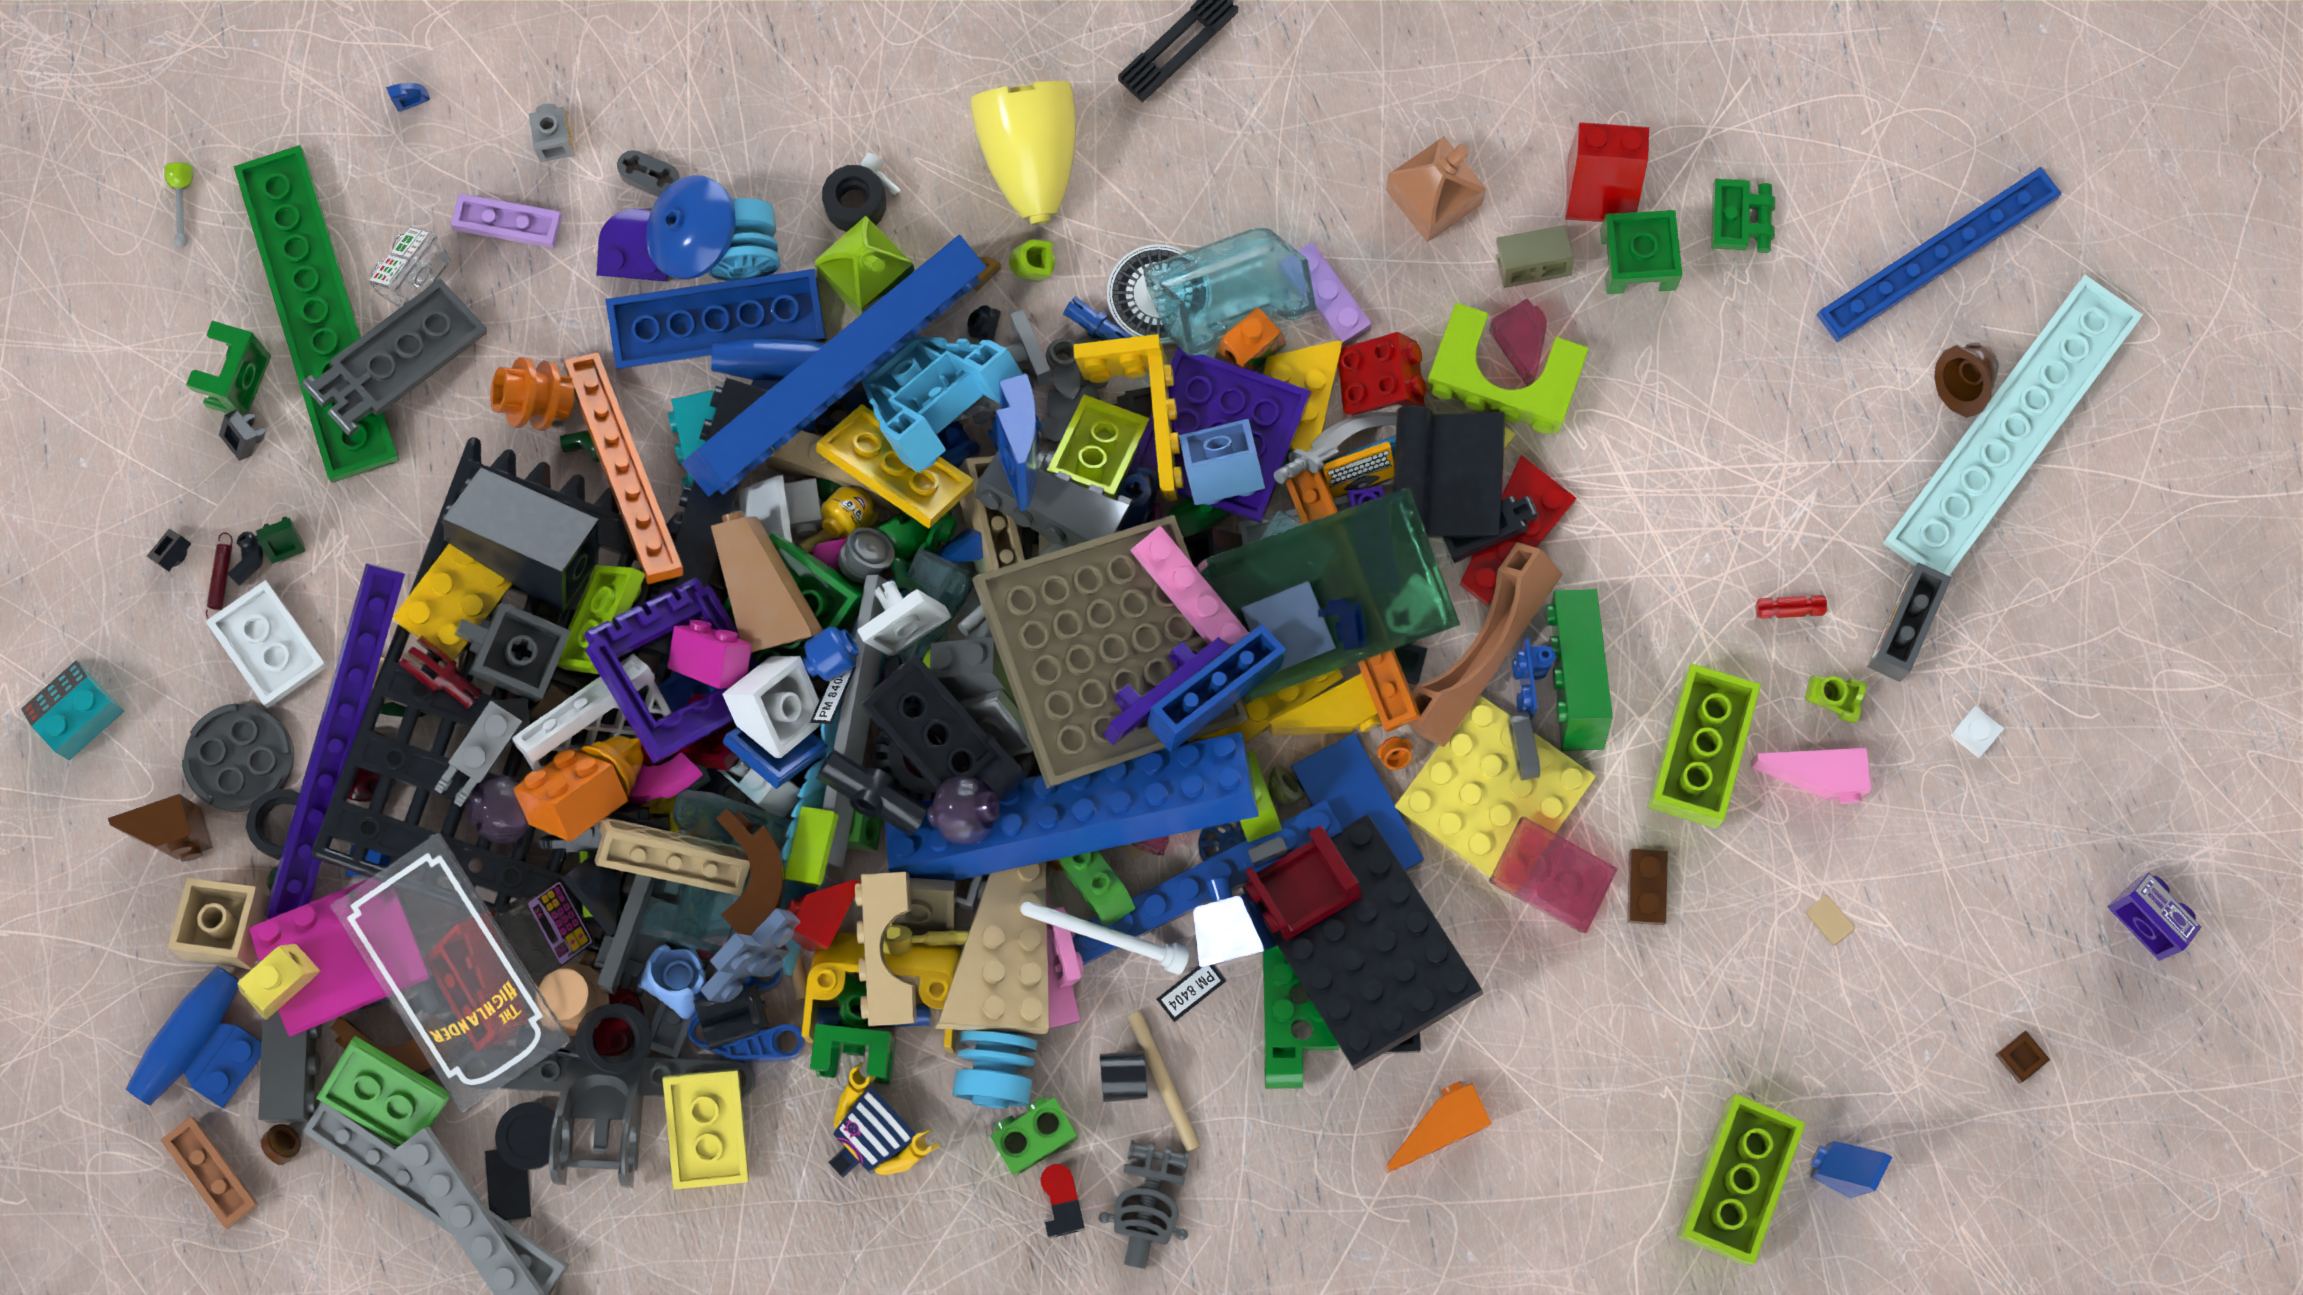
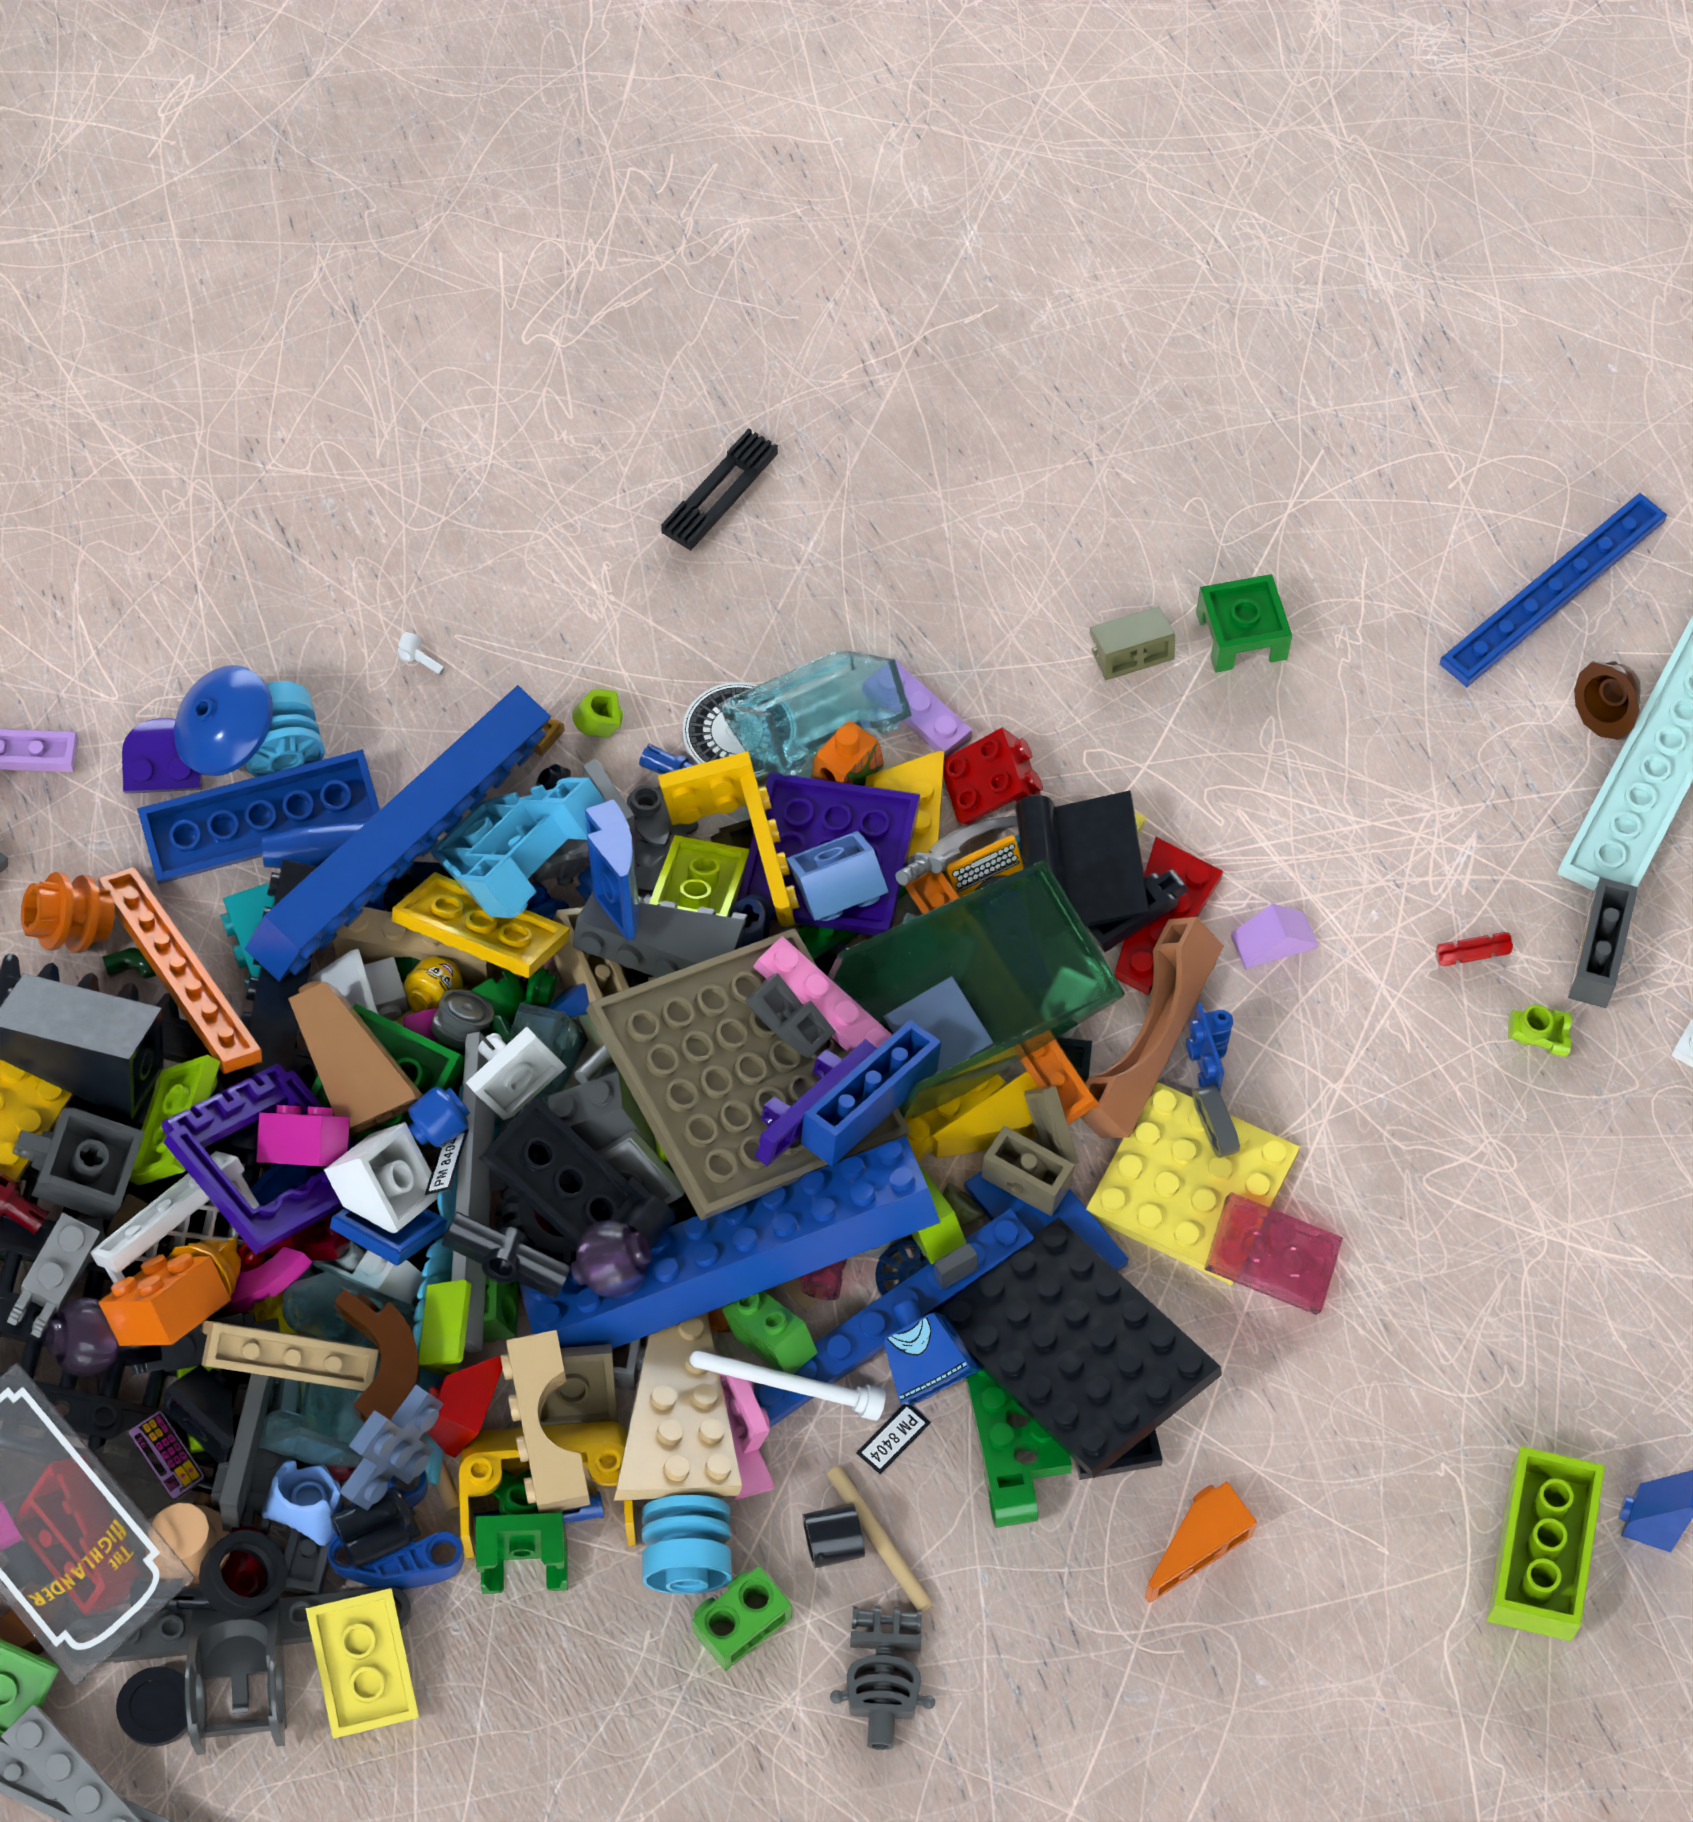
camera: 10 degrees left, 15 degrees down
(506, 1188) = (136, 1770): black sticker -> none
(555, 142) = (55, 652): light grey brick -> none
(651, 167) = (169, 683): dark grey beam -> none
(853, 178) = (391, 660): black tyre -> none
(863, 266) = (410, 738): lime piece -> none
(873, 1132) = (557, 1638): torso -> none
(900, 939) = (558, 1422): light yellow piece -> none
(1028, 144) = (576, 596): light yellow cylinder -> none
(1060, 1187) = (781, 1671): leg -> none
(1154, 604) = (795, 1023): none -> dark grey slope
(1303, 886) = (1003, 1294): dark red panel -> none
(1347, 769) = (1027, 1170): none -> dark tan brick
(1350, 627) = (1006, 1015): clear blue bracket -> none
(1374, 731) = (1050, 1122): none -> dark tan tile
(1395, 753) = (1085, 1152): orange plate -> none
(1436, 188) = (1017, 589): nougat piece -> none
(1521, 337) = (1133, 722): clear pink slope -> none
(1539, 404) = (1163, 784): lime arch -> none
(1579, 670) = (1262, 1041): green wedge -> none
(1605, 170) = (1191, 544): red slope -> none
(1611, 567) = (1273, 936): none -> lavender slope
(1647, 887) = (1378, 1255): reddish brown plate -> none
(1703, 746) = (1410, 1097): lime brick -> none
(1731, 215) = (1331, 578): green plate -> none
(1826, 773) = (1542, 1108): bright pink slope -> none
(1830, 920) = (1584, 1262): tan sticker -> none

